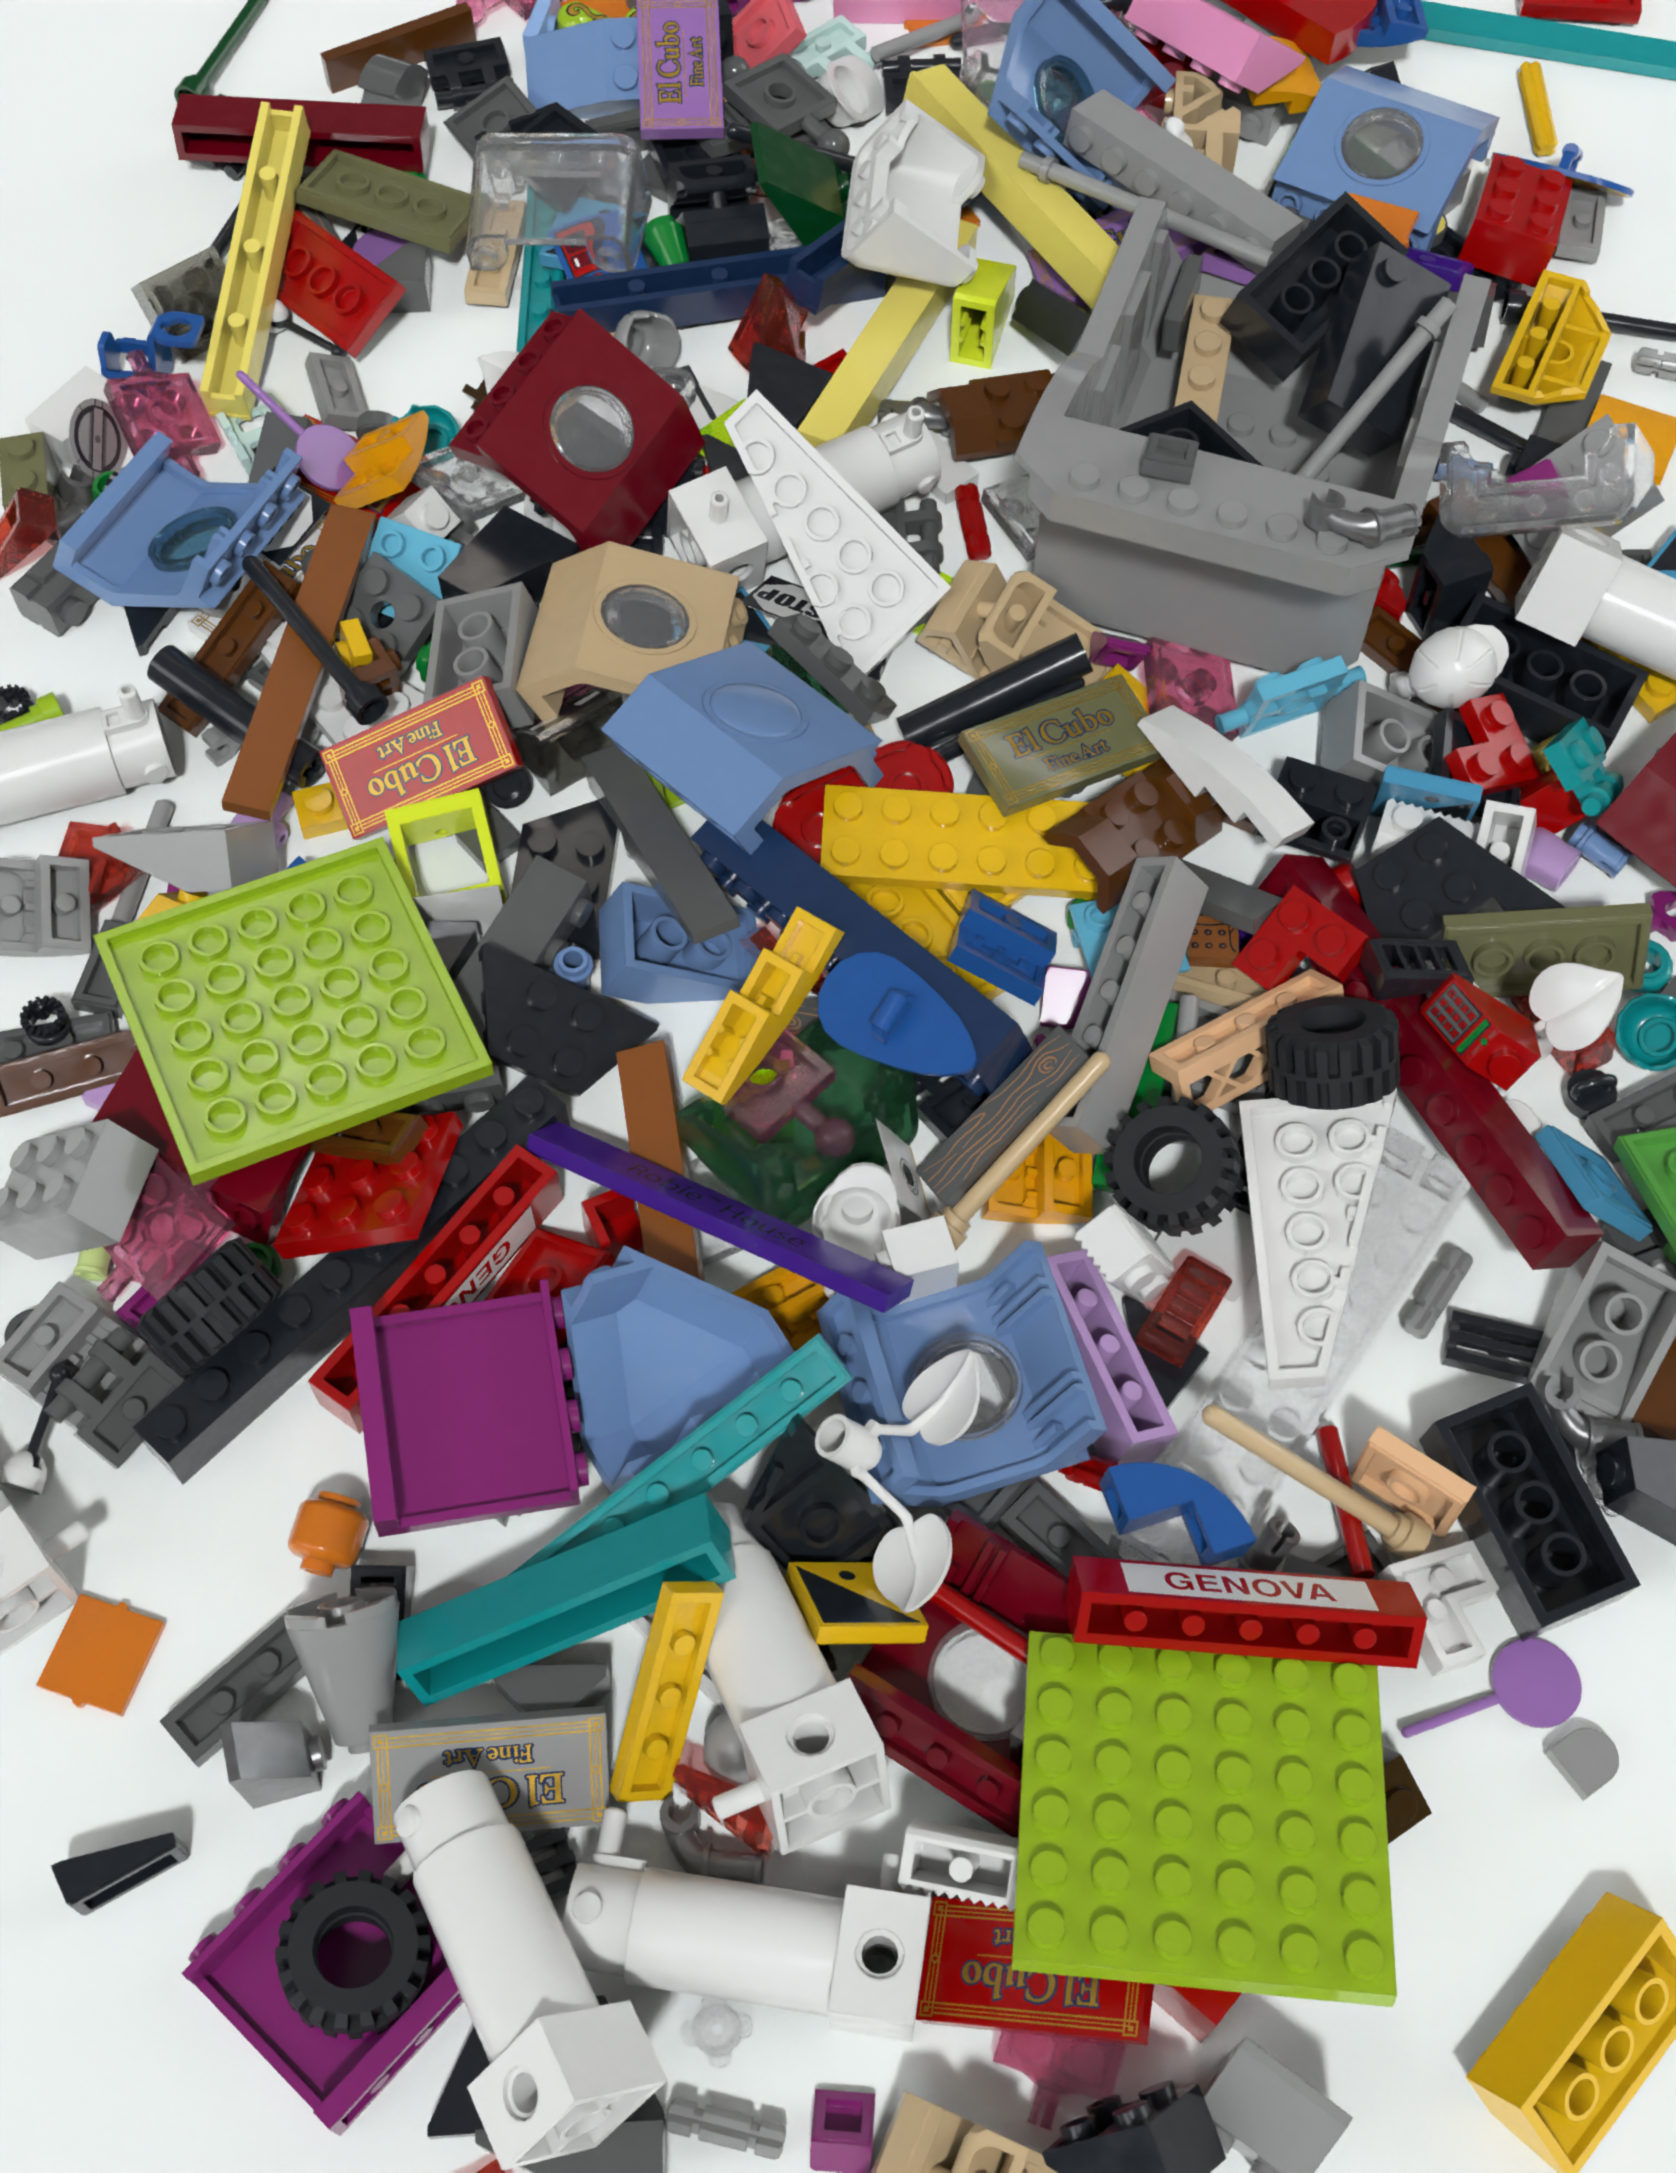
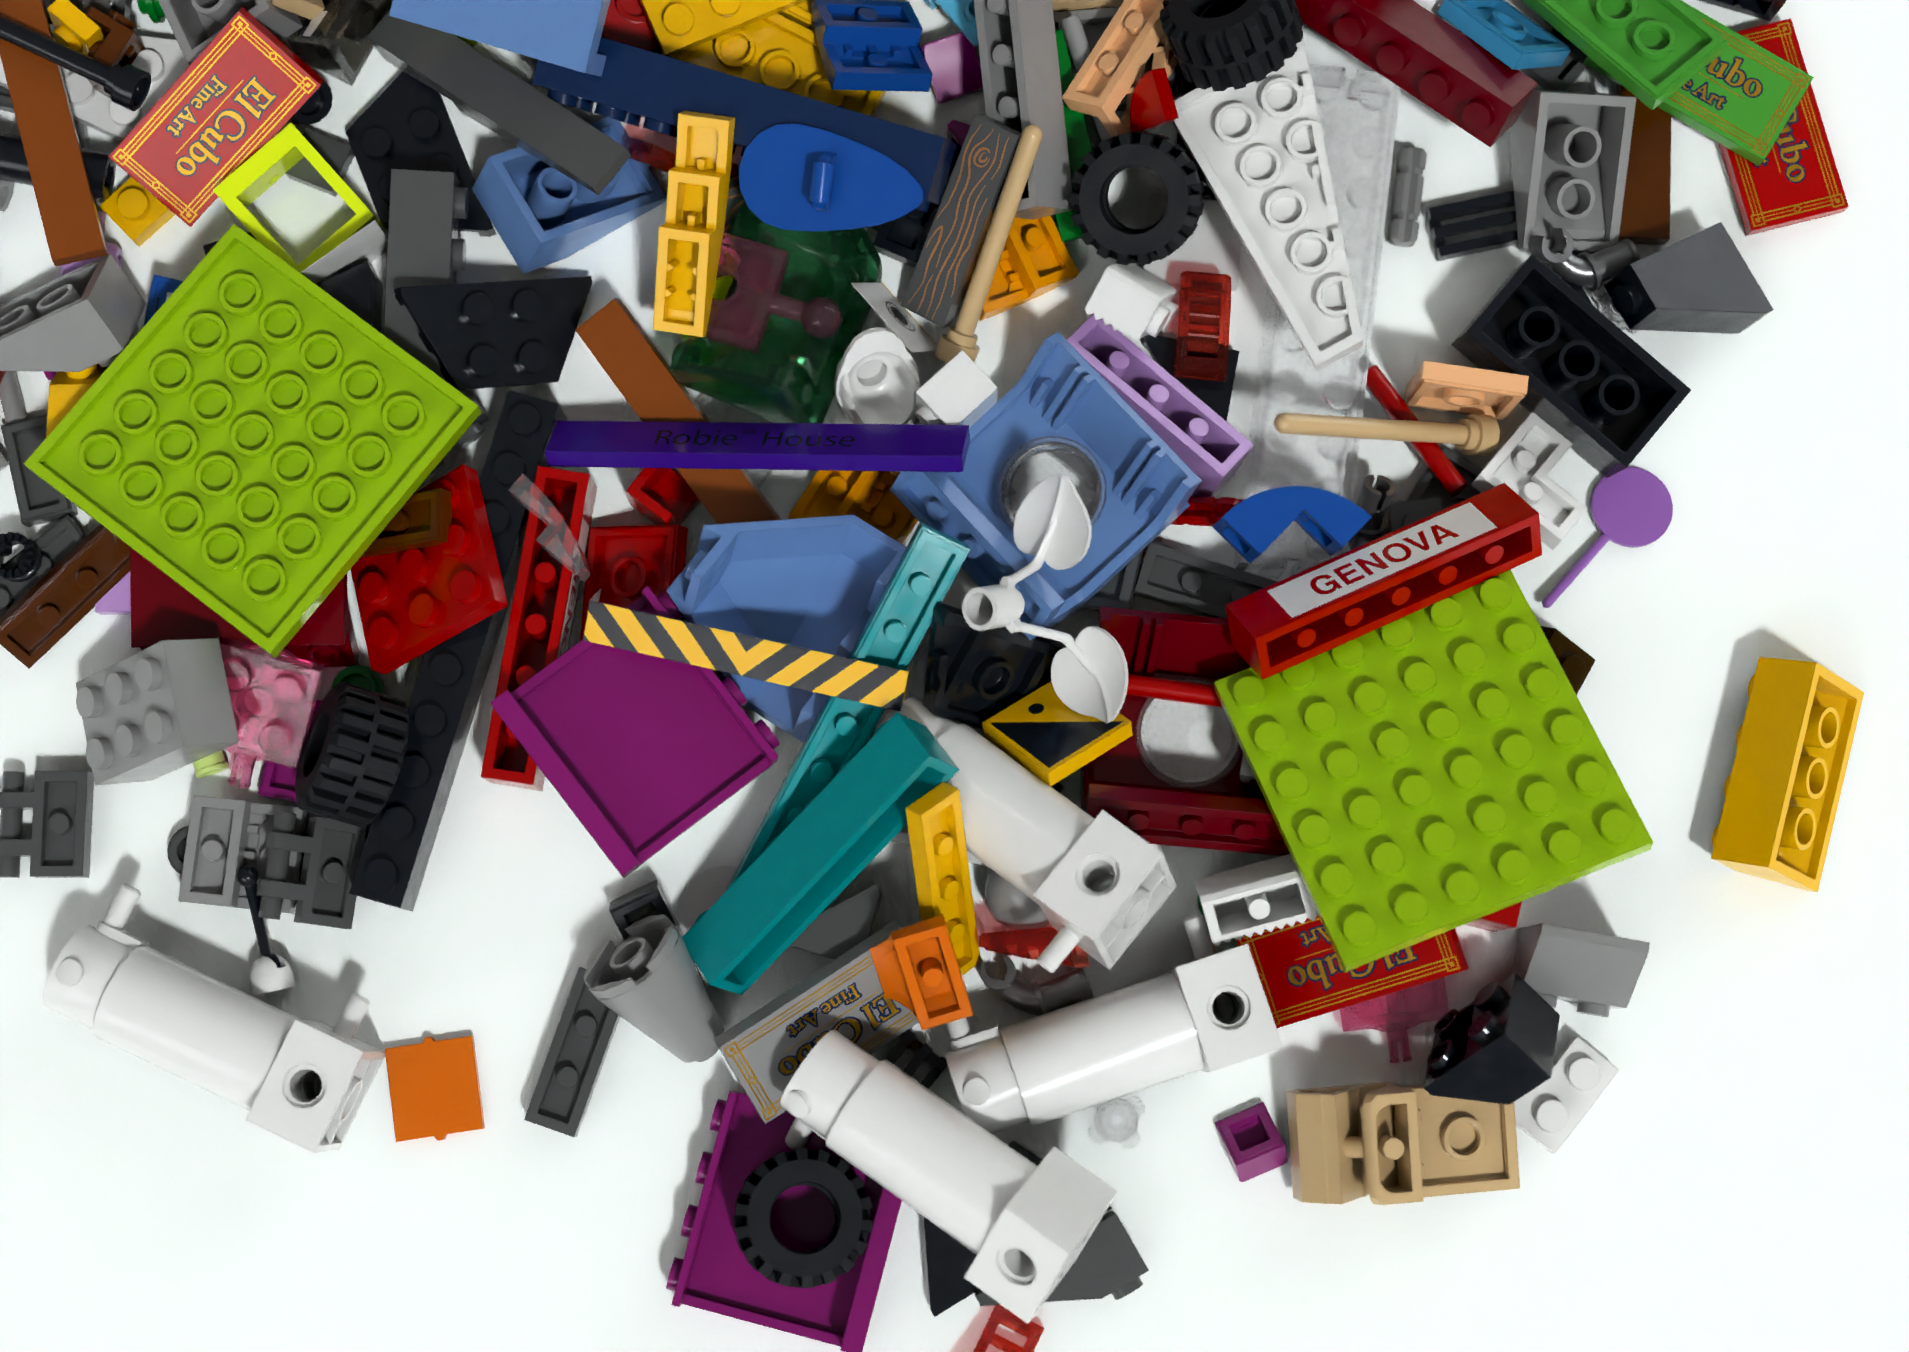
camera: 30 degrees left, 20 degrees up
(108, 1874) = (553, 1264): black slope -> none
(272, 1760) = (642, 1102): flat silver slope -> none
(328, 1533) = (571, 893): orange head -> none
(495, 1201) = (557, 537): none -> clear slope
(574, 966) = (482, 253): medium blue pin -> none
(603, 1764) = (923, 972): none -> orange slope
(606, 1386) = (745, 655): none -> sticker
(725, 2128) = (1163, 1188): light grey axle -> none
(1230, 1090) = (1152, 102): none -> red tile
(1585, 1760) = (1697, 553): light grey tile -> none

